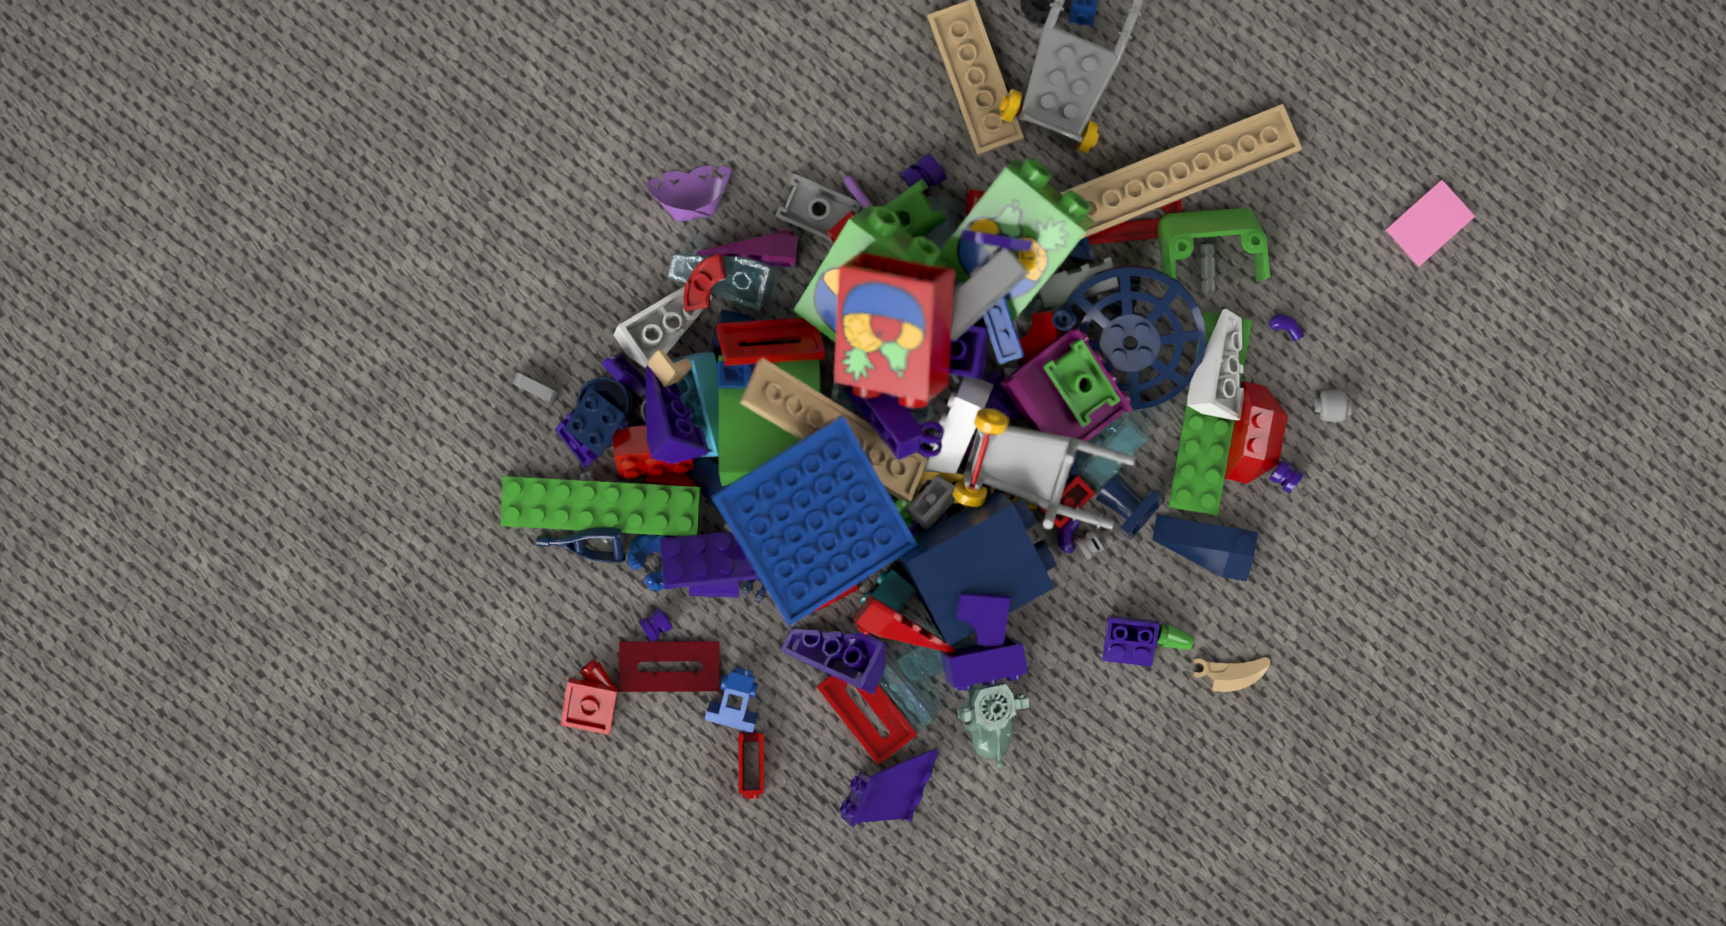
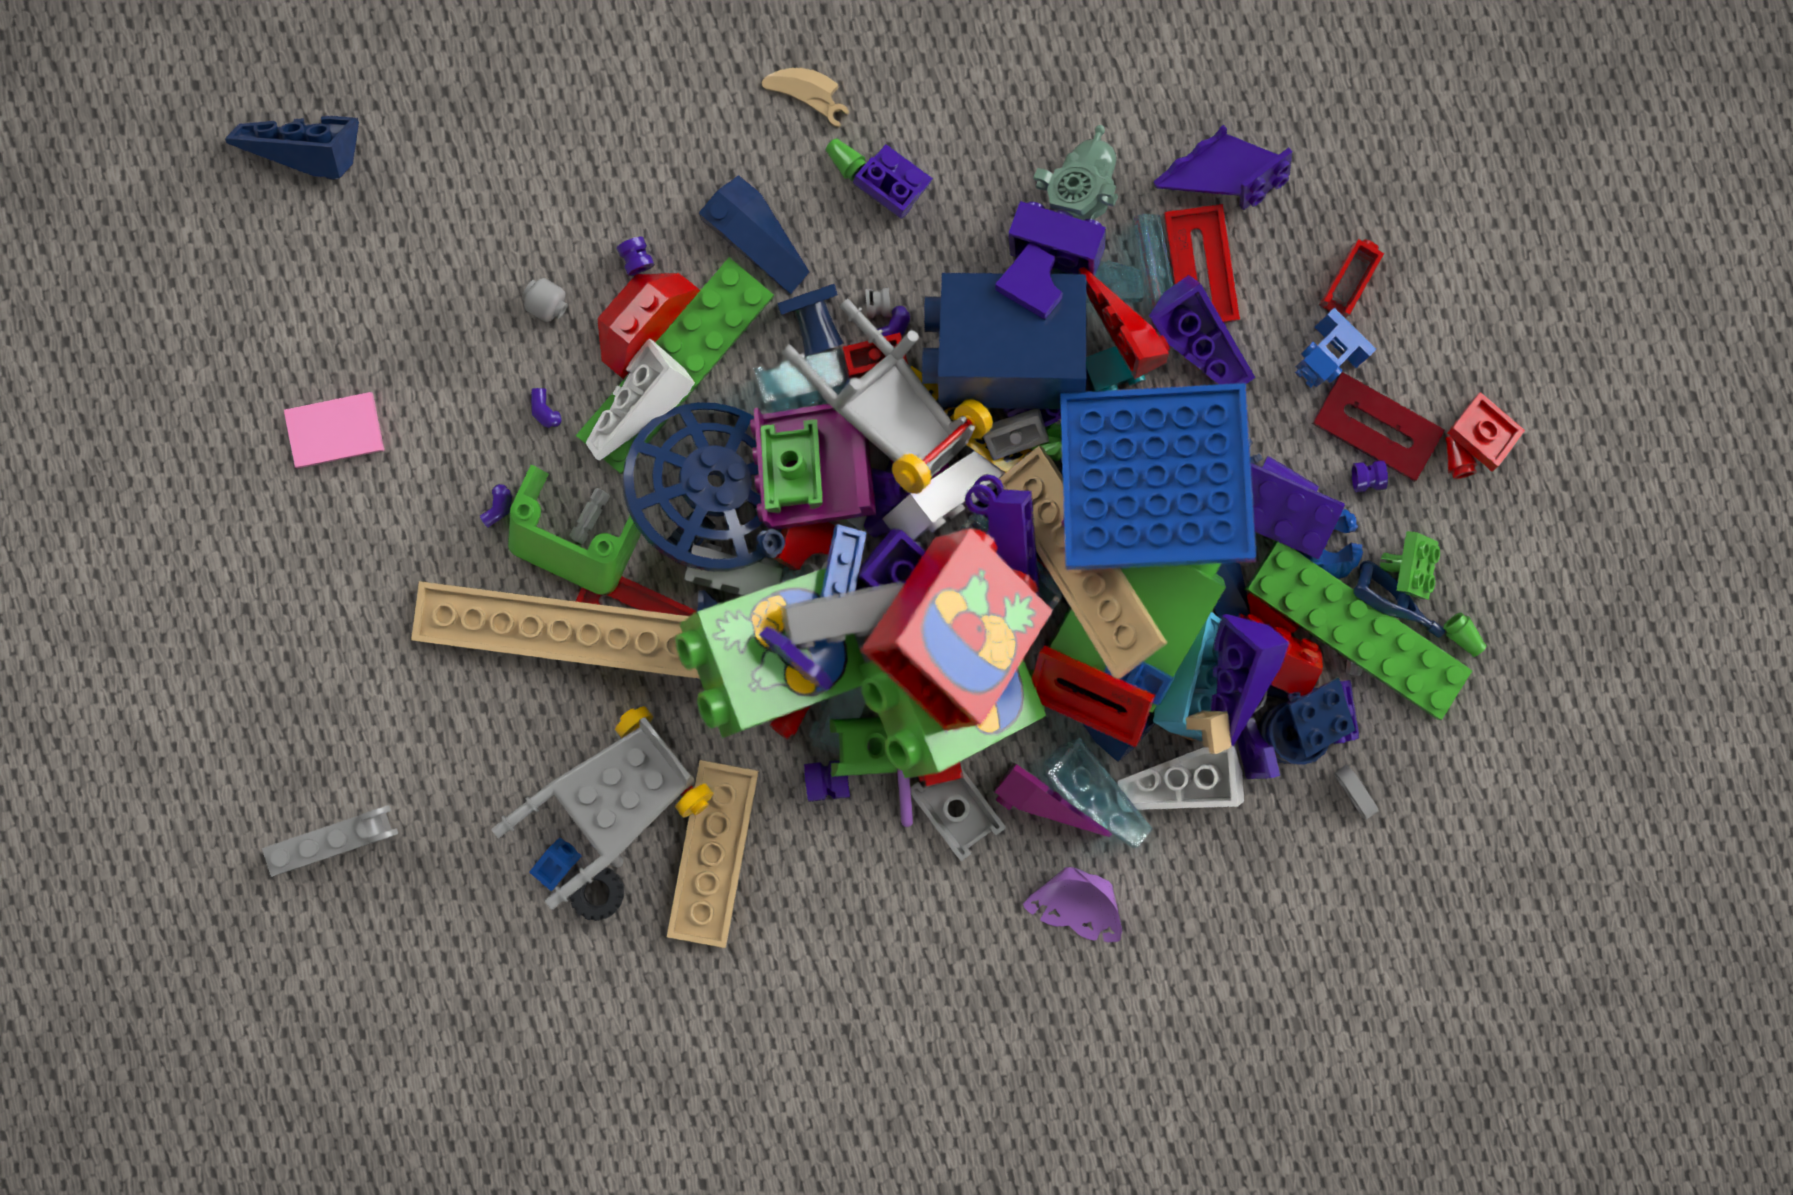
camera: 155 degrees left, 0 degrees up
(521, 549) = (1464, 633): none -> bright green cone
(586, 576) = (1414, 565): none -> bright green plate
(702, 281) = (1124, 800): red tile -> none
(1276, 237) = (500, 506): none -> dark purple arm
(1570, 418) = (312, 148): none -> dark blue wedge

